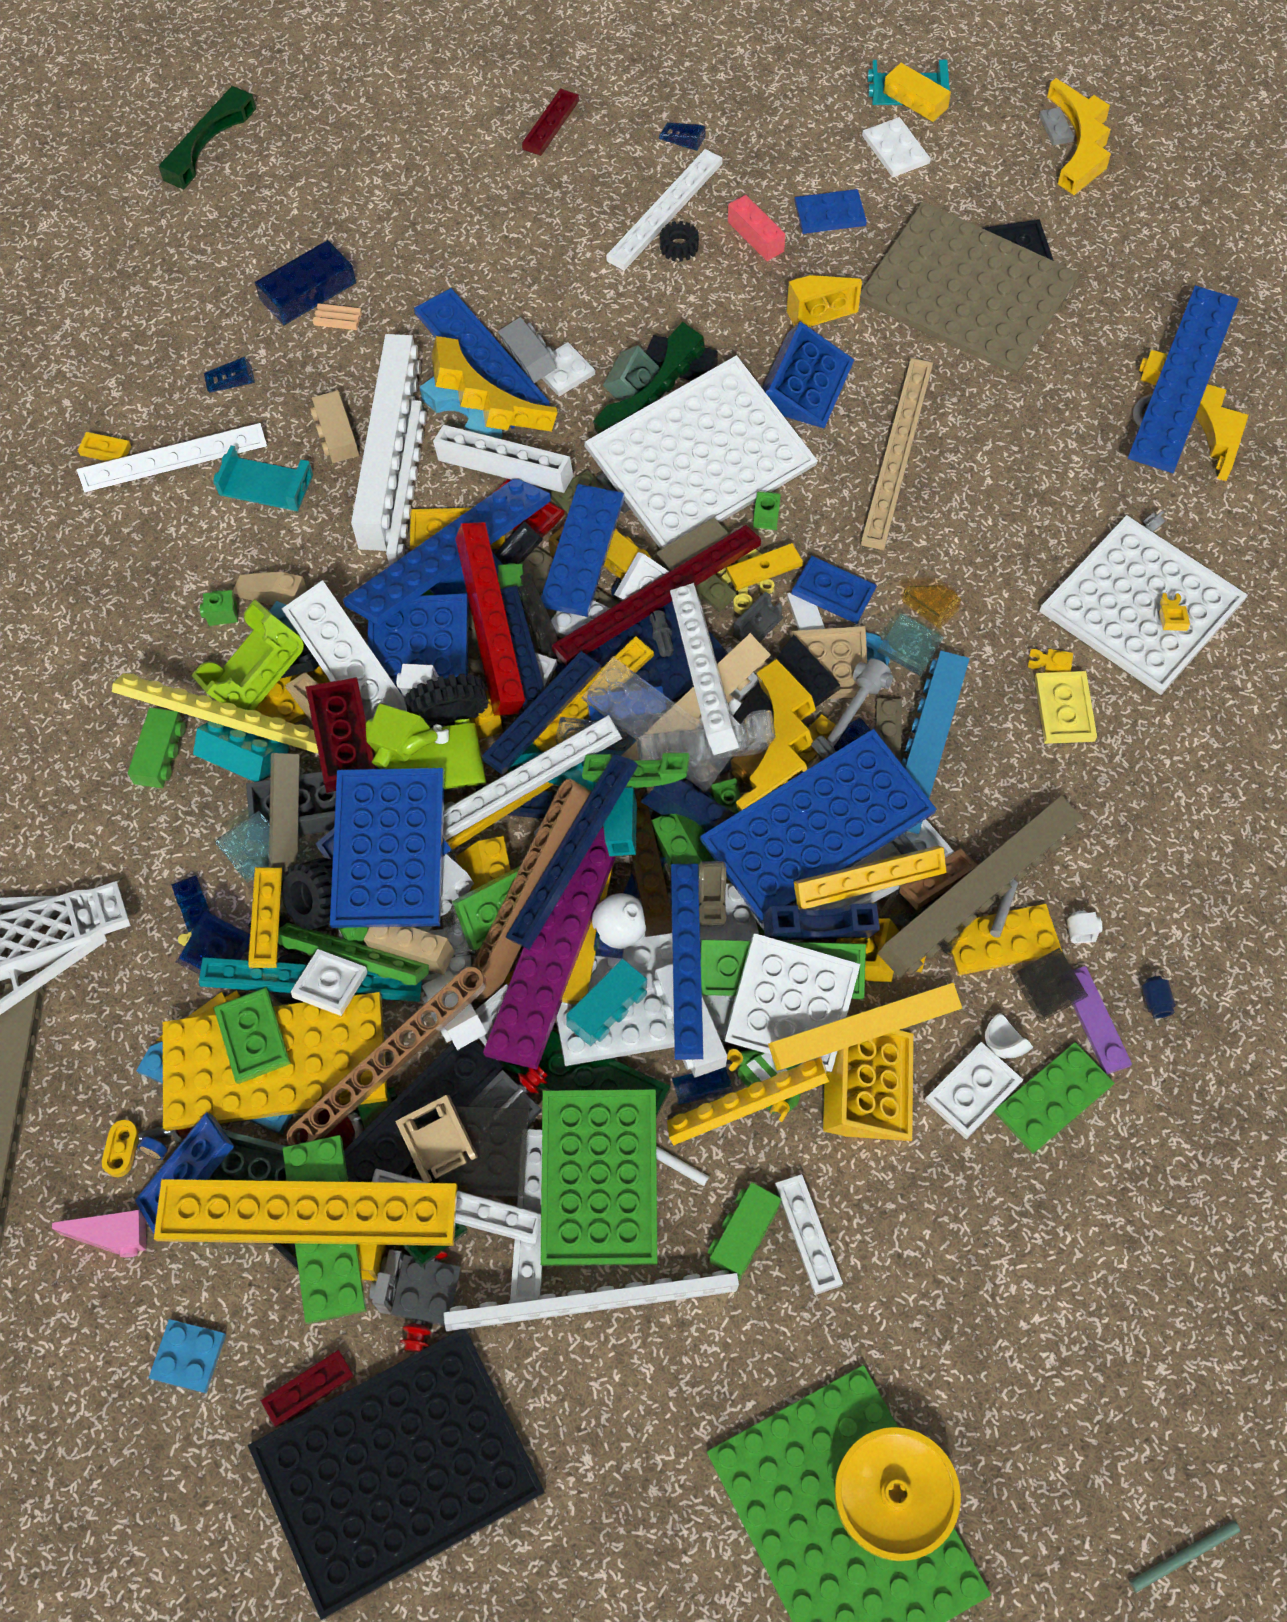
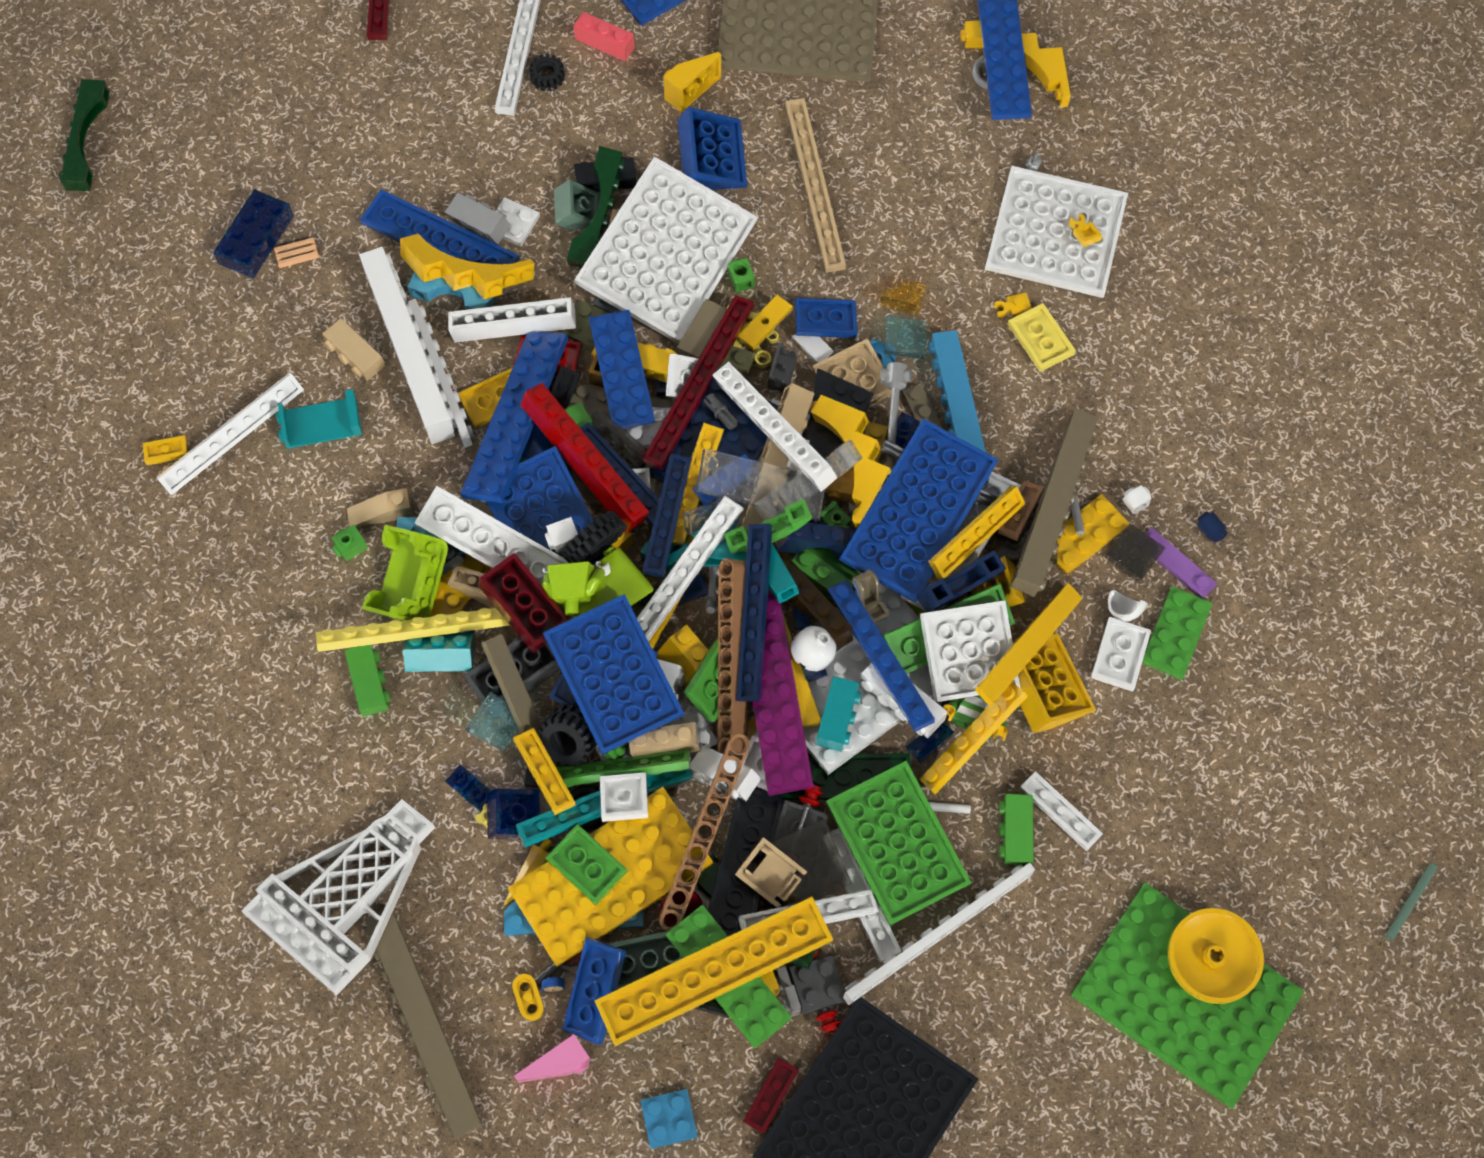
camera: 30 degrees left, 5 degrees up
(239, 379) = (238, 348): clear blue slope -> none

